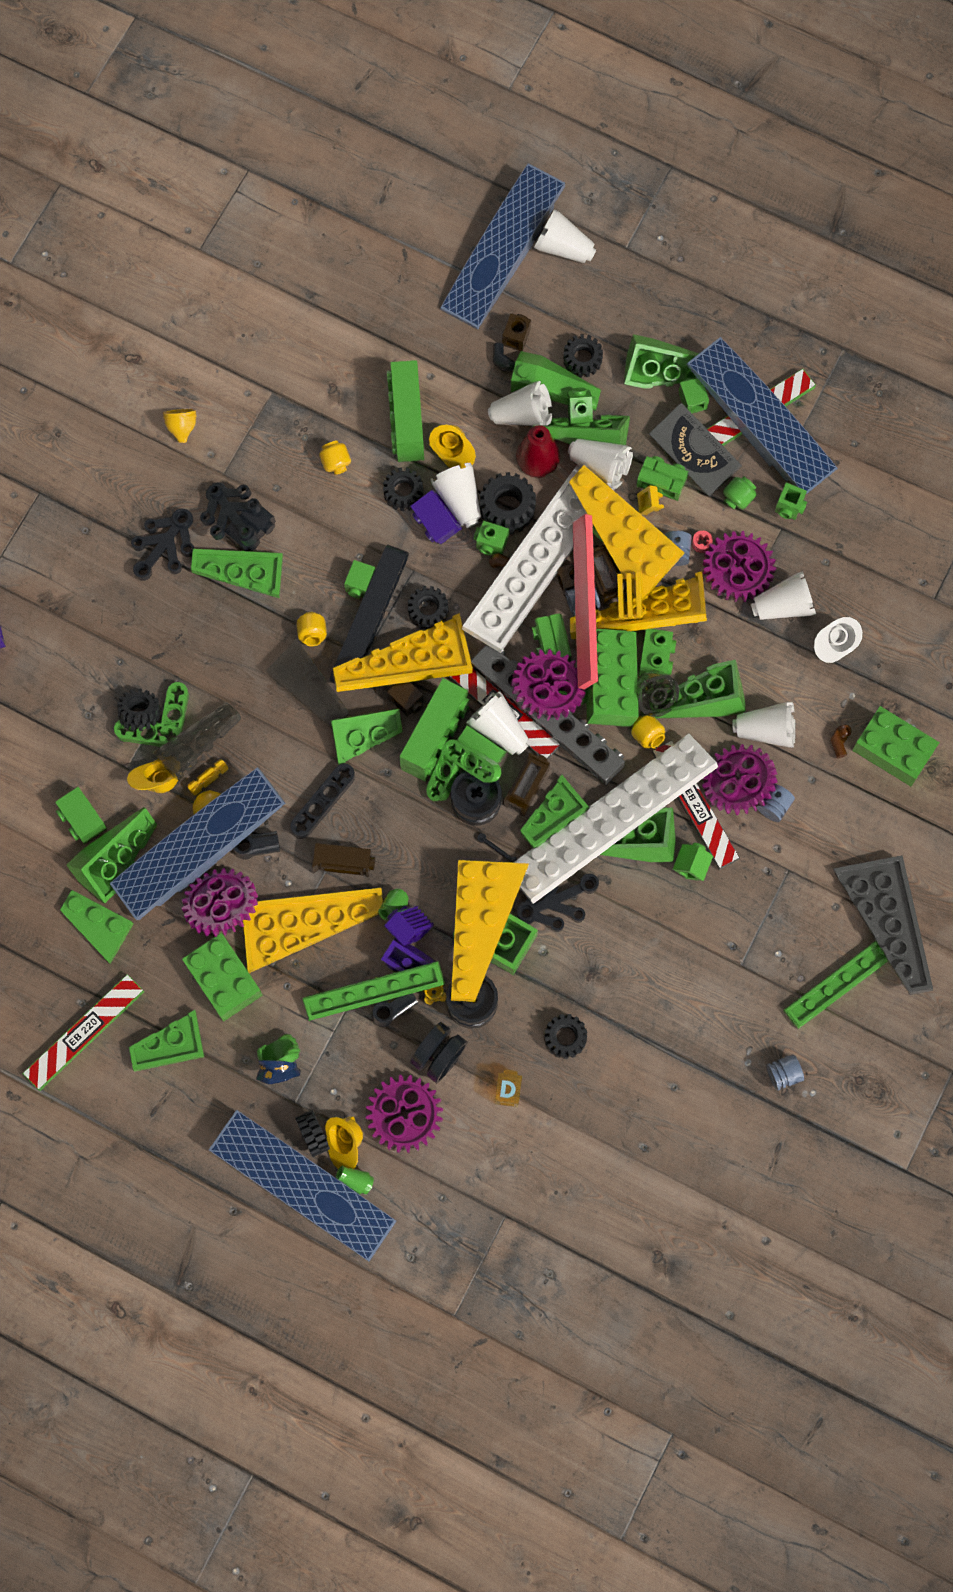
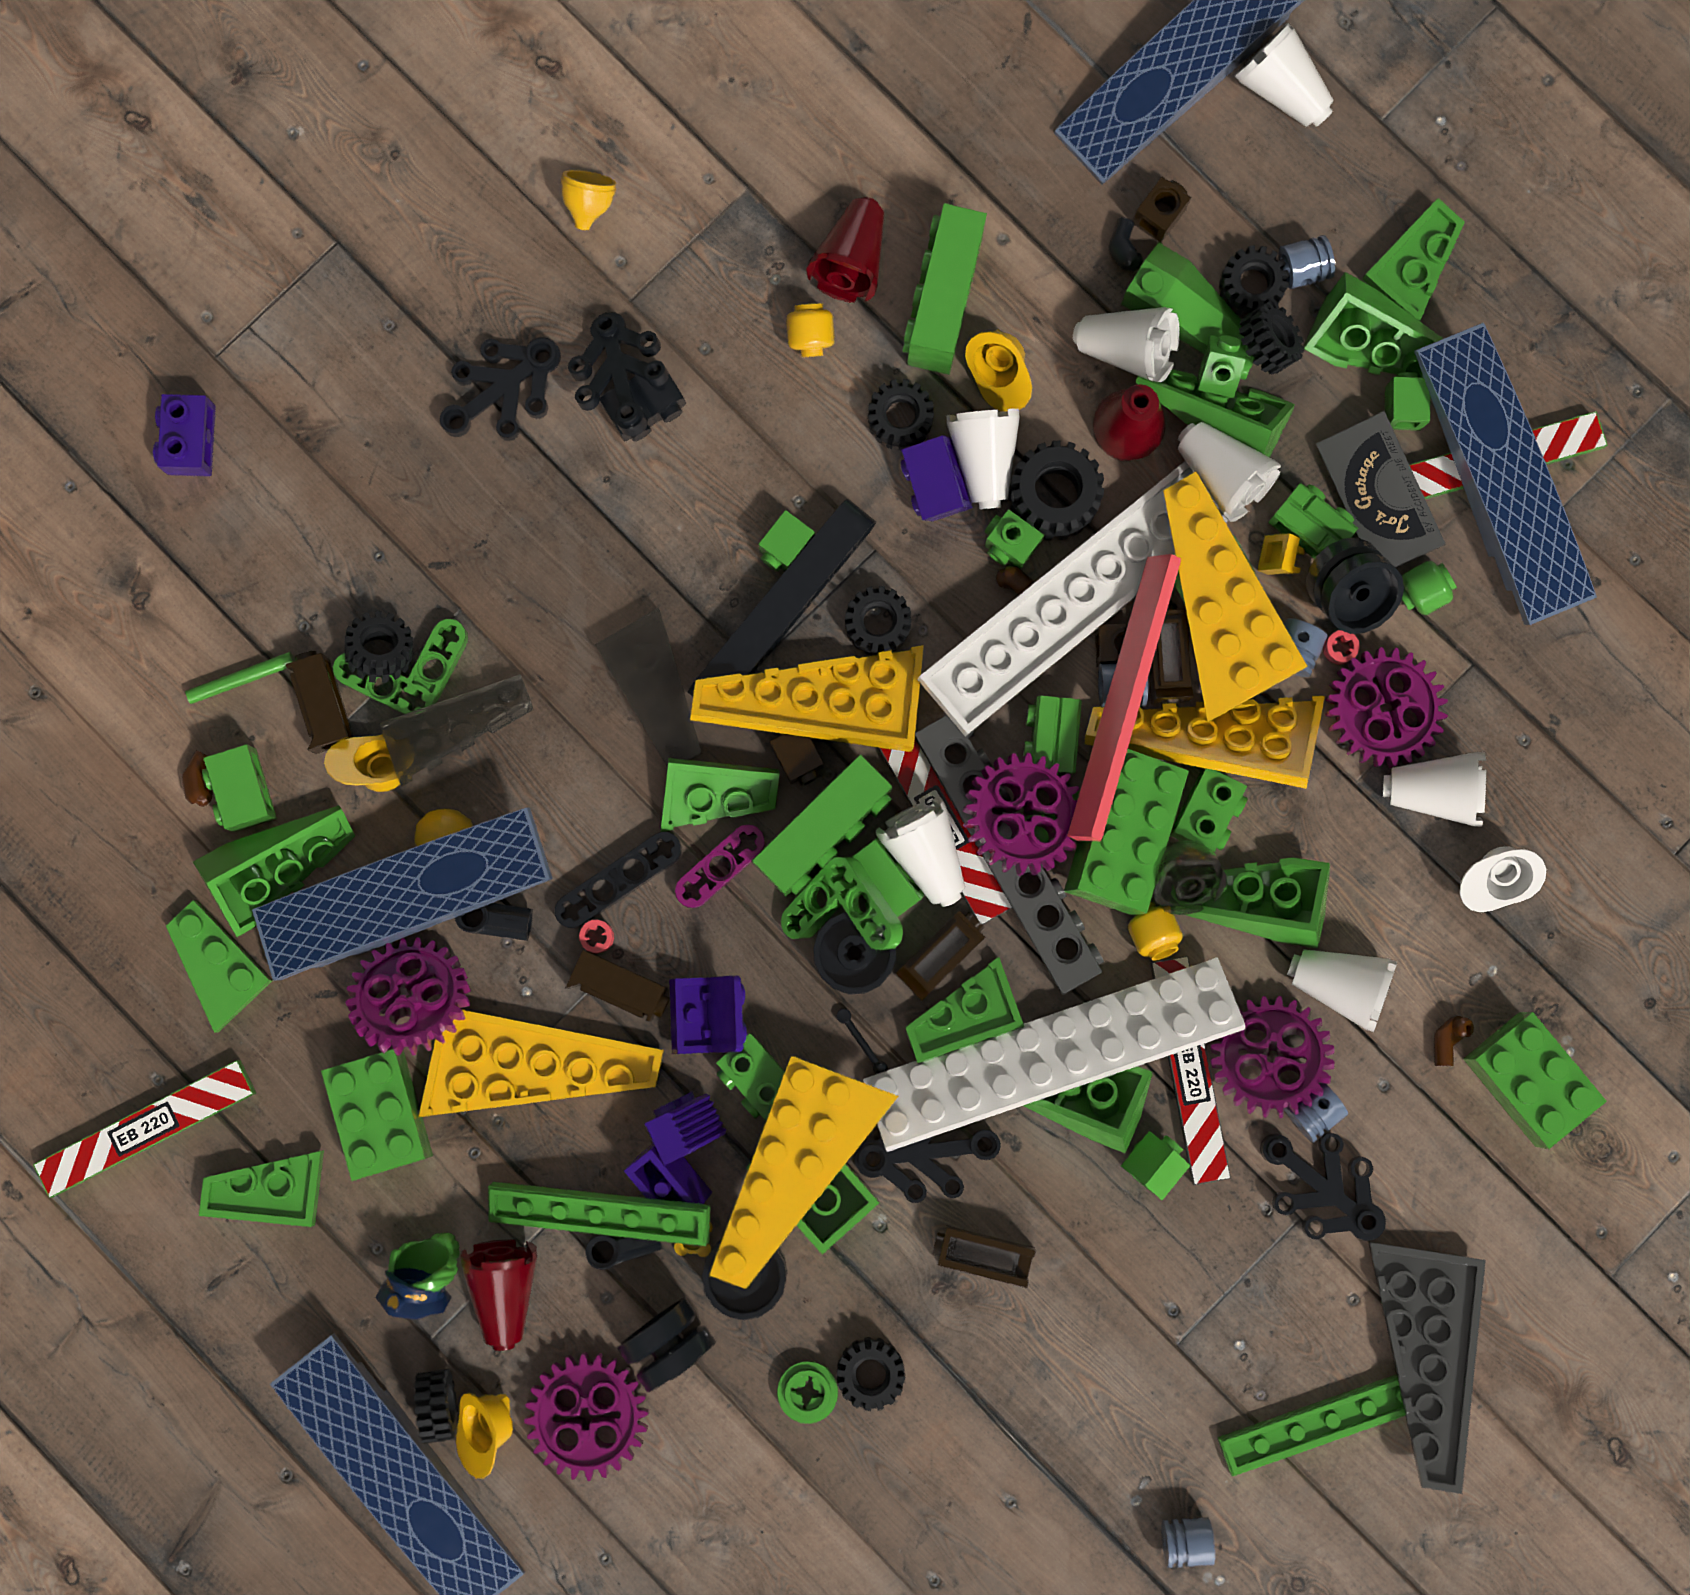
camera: 15 degrees right, 10 degrees up
(50, 822) = (193, 781): none -> reddish brown arm
(59, 755) = (239, 678): none -> bright green bar
(112, 752) = (319, 700): none -> dark brown window
(207, 777) = (454, 785): yellow axle -> none
(244, 569) = (615, 469): bright green wing -> none
(311, 628) = (686, 599): yellow head -> none
(316, 831) = (594, 925): none -> coral bush
(329, 1055) = (500, 1288): none -> dark red cone
(345, 409) = (850, 253): none -> dark red cone
(355, 1179) = (482, 1497): bright green cone -> none
(366, 785) = (735, 842): none -> magenta beam
(394, 900) = (673, 1082): bright green cone -> none
(401, 858) = (707, 1014): none -> dark purple bracket
(438, 884) = (754, 1074): none -> bright green brick
(508, 1088) = (756, 1429): clear yellow brick -> none
(538, 1050) = (792, 1401): none -> bright green gear
(603, 382) = (1271, 338): none -> black tyre
(610, 335) = (1308, 261): none -> sand blue piece
(610, 945) = (984, 1255): none -> dark brown window
(628, 576) = (1206, 677): yellow tile -> none
(672, 316) = (1416, 260): none -> bright green wing
(696, 502) = (1354, 585): none -> black wheel
(791, 502) = (1504, 630): bright green brick -> none
(798, 847) = (1329, 1190): none -> black plant

